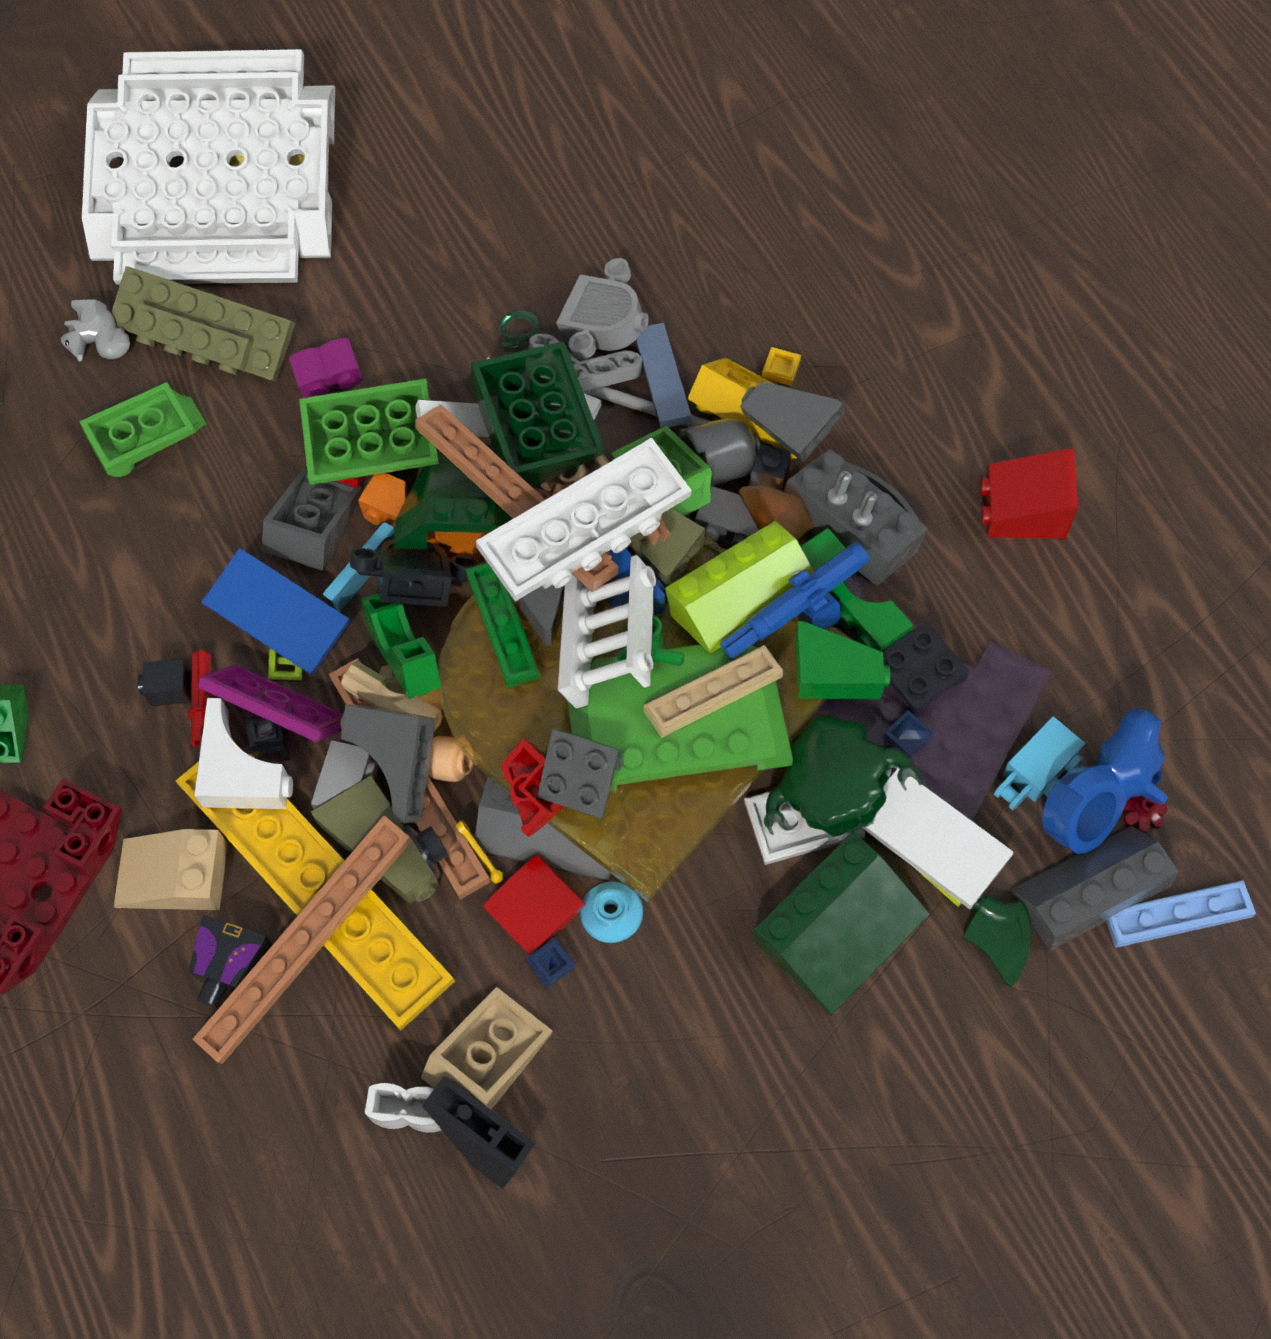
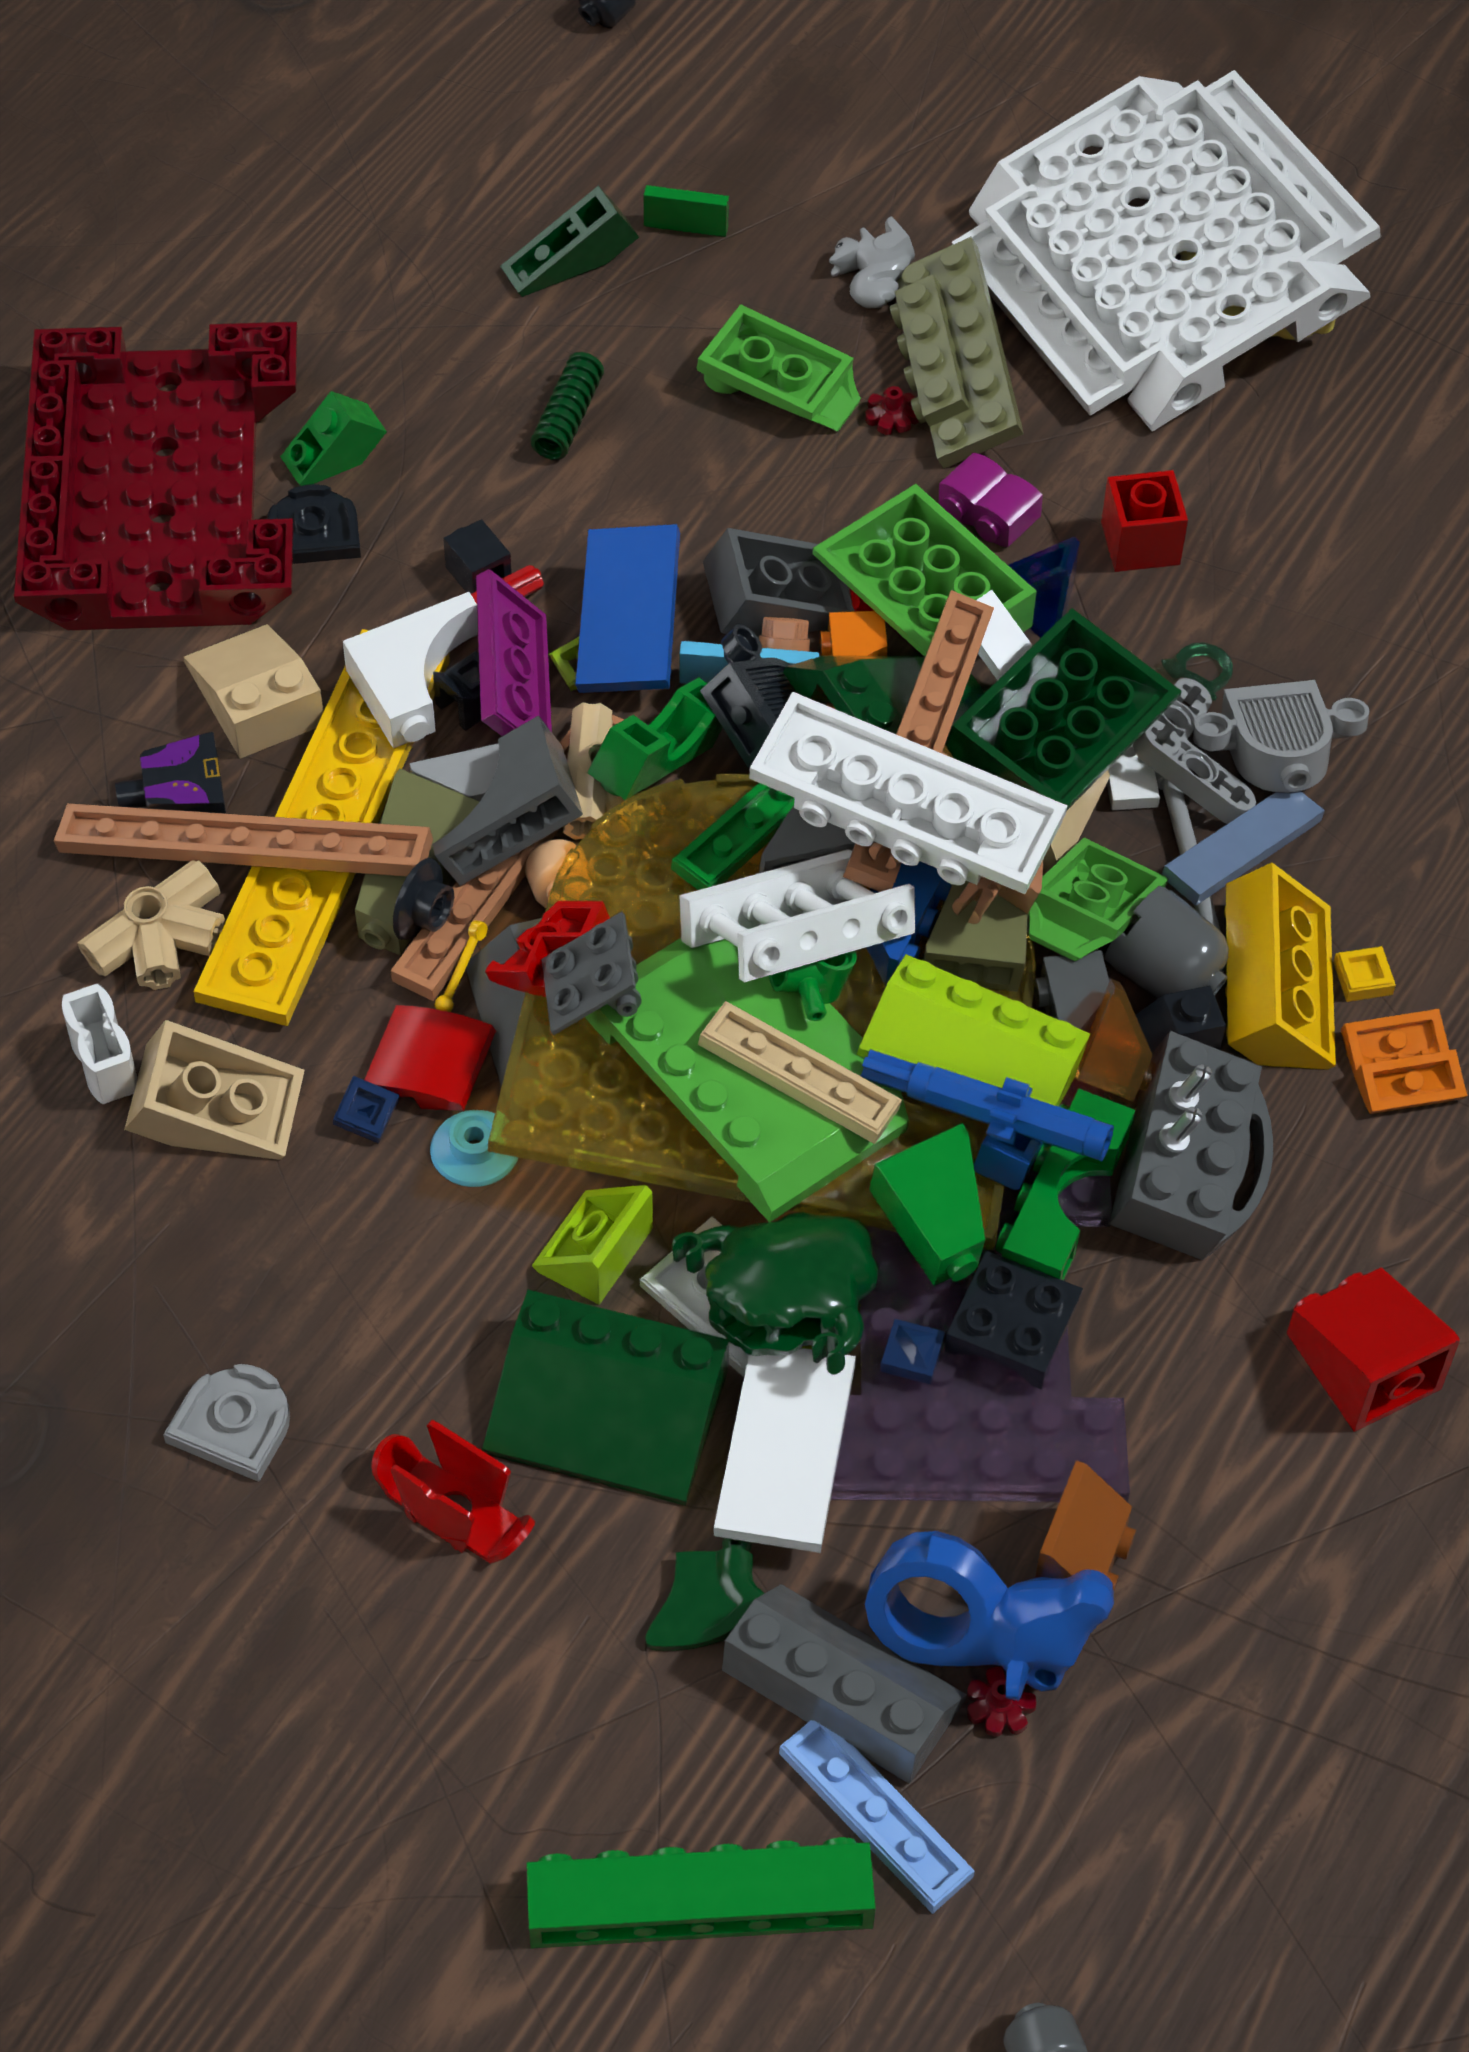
camera: 55 degrees right, 10 degrees down
(60, 759) = (322, 524): none -> black tile
(78, 565) = (567, 406): none -> dark green piece
(214, 385) = (891, 411): none -> dark red plant
(342, 1033) = (153, 941): none -> tan piece
(353, 534) = (785, 634): none -> nougat piece
(403, 296) = (1144, 520): none -> red head
(412, 364) = (1053, 577): none -> clear blue slope
(478, 1132) = (105, 1121): black slope -> none
(725, 872) = (598, 1240): none -> lime slope
(729, 1156) = (233, 1420): none -> light grey tile
(792, 416) = (1258, 990): dark grey slope -> none
(853, 379) = (1403, 1061): none -> orange slope
(887, 1038) = (464, 1471): none -> red piece
(1040, 763) = (1001, 1528): medium azure brick -> none
(1080, 711) = (1086, 1528): none -> dark orange slope
(1192, 1039) = (700, 1893): none -> green brick

